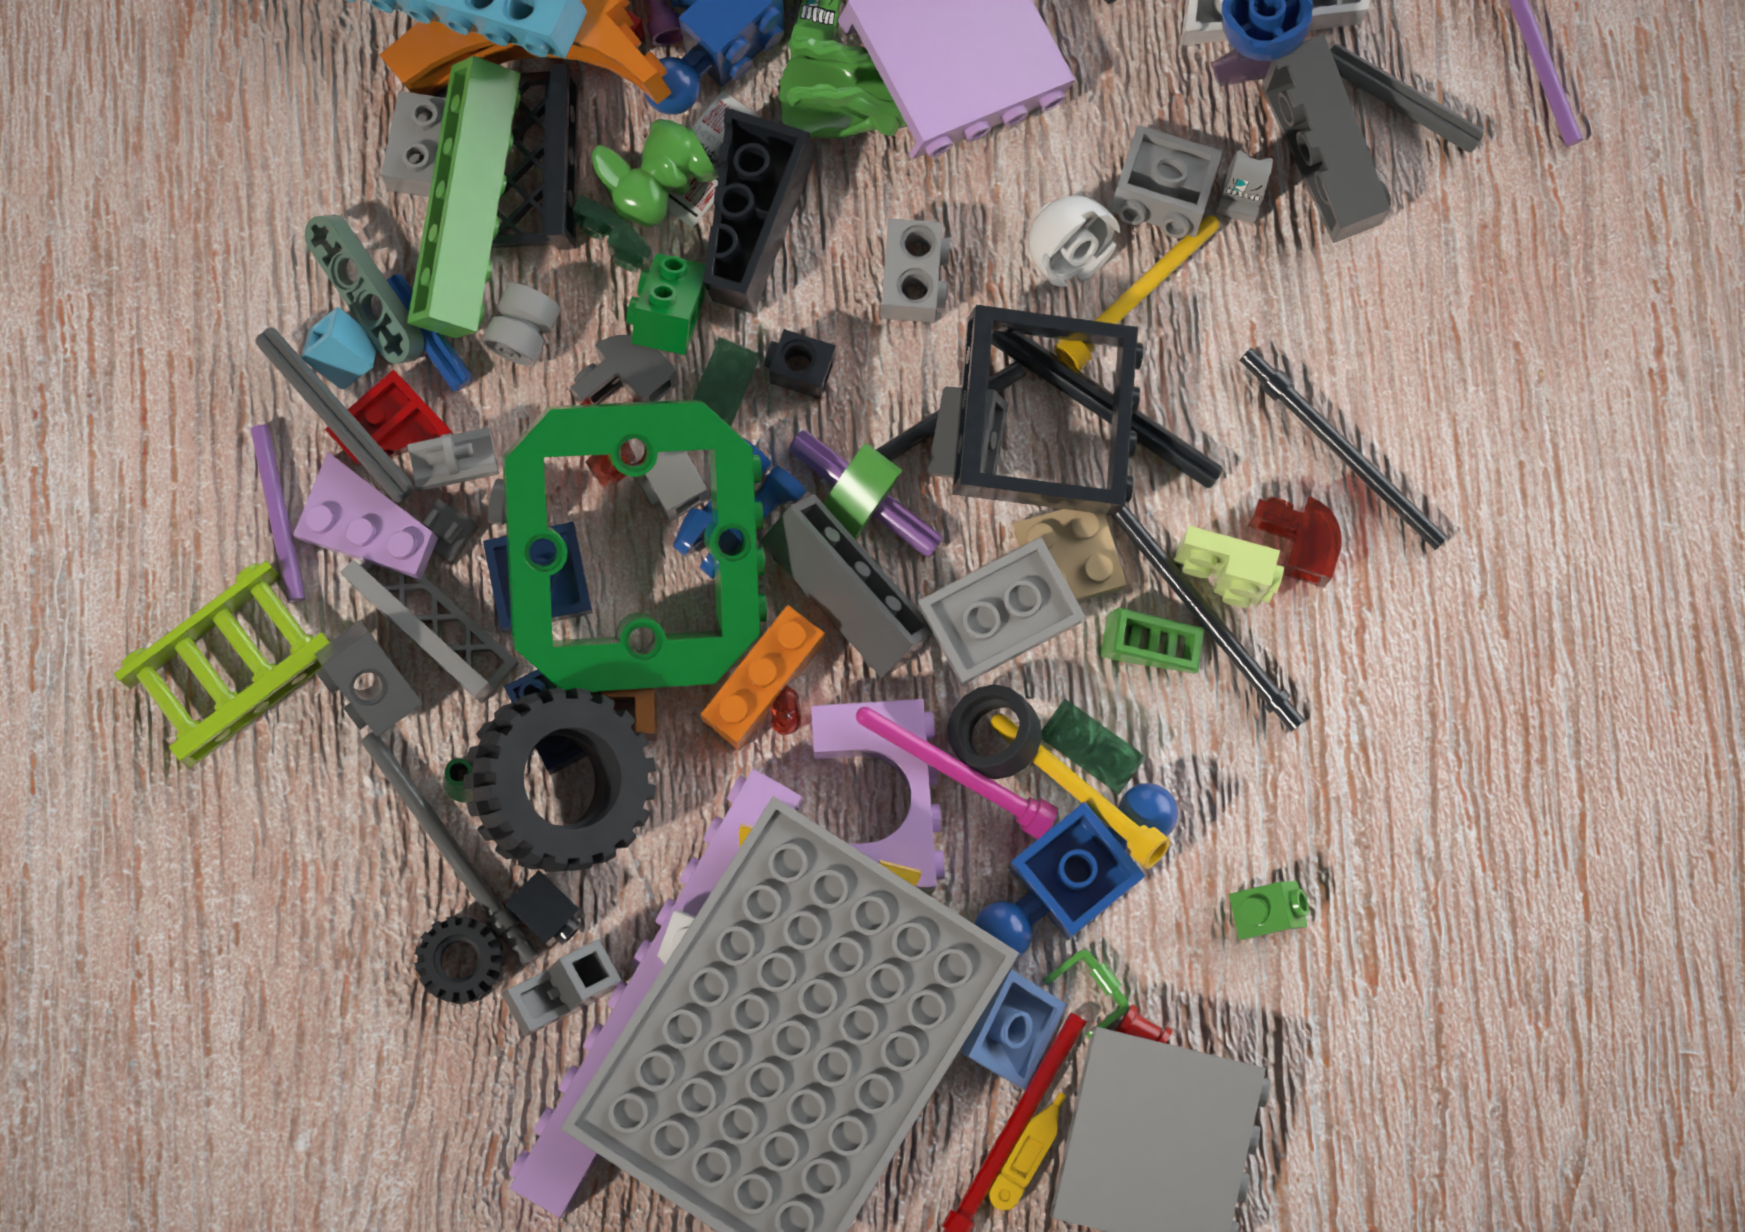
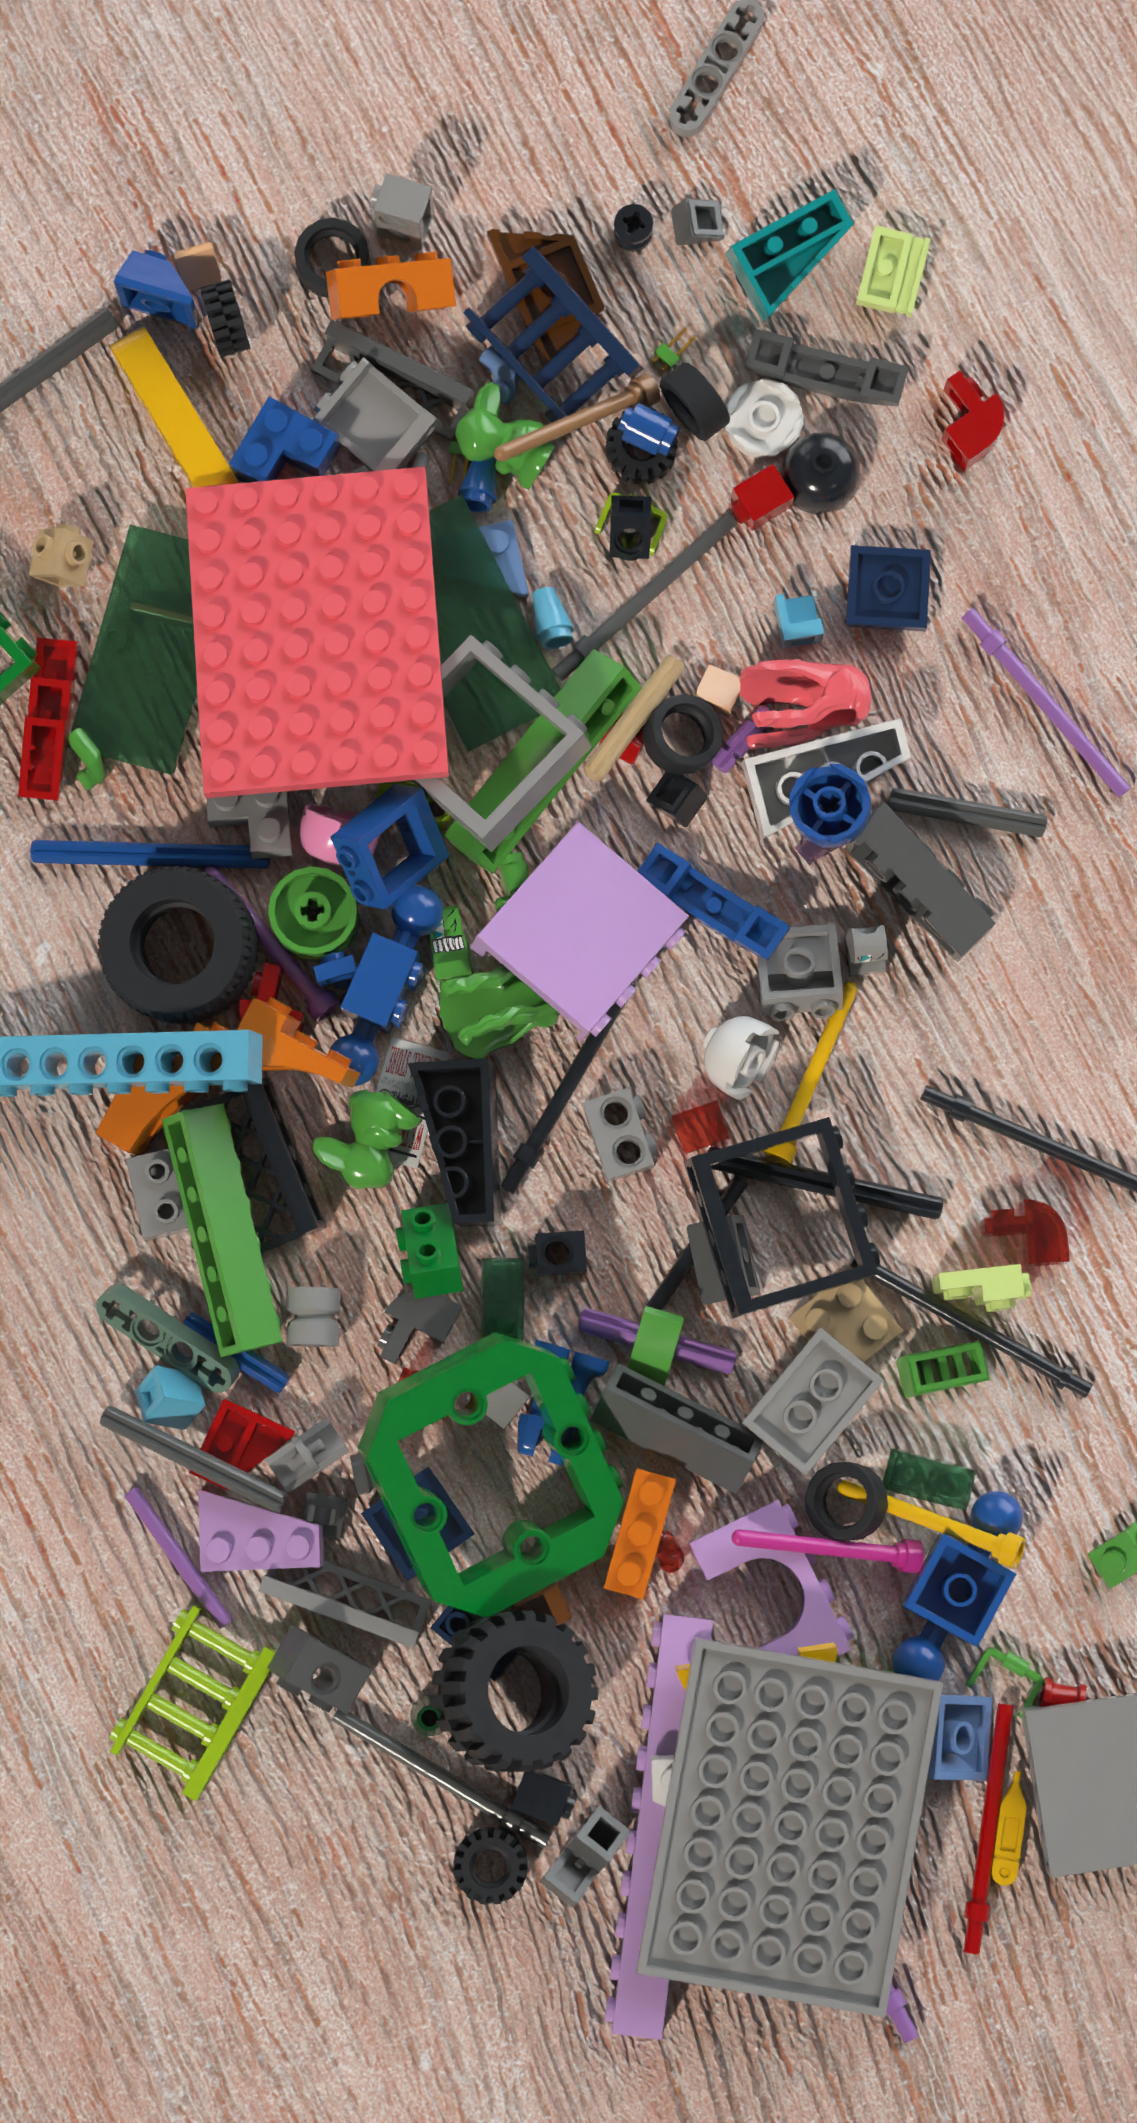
camera: 20 degrees left, 5 degrees up
(623, 241) = (369, 1210): clear green slope -> none
(812, 254) = (528, 1154): none -> black bar
(1000, 288) = (700, 1127): none -> clear red panel
(1103, 84) = (713, 904): none -> blue slope

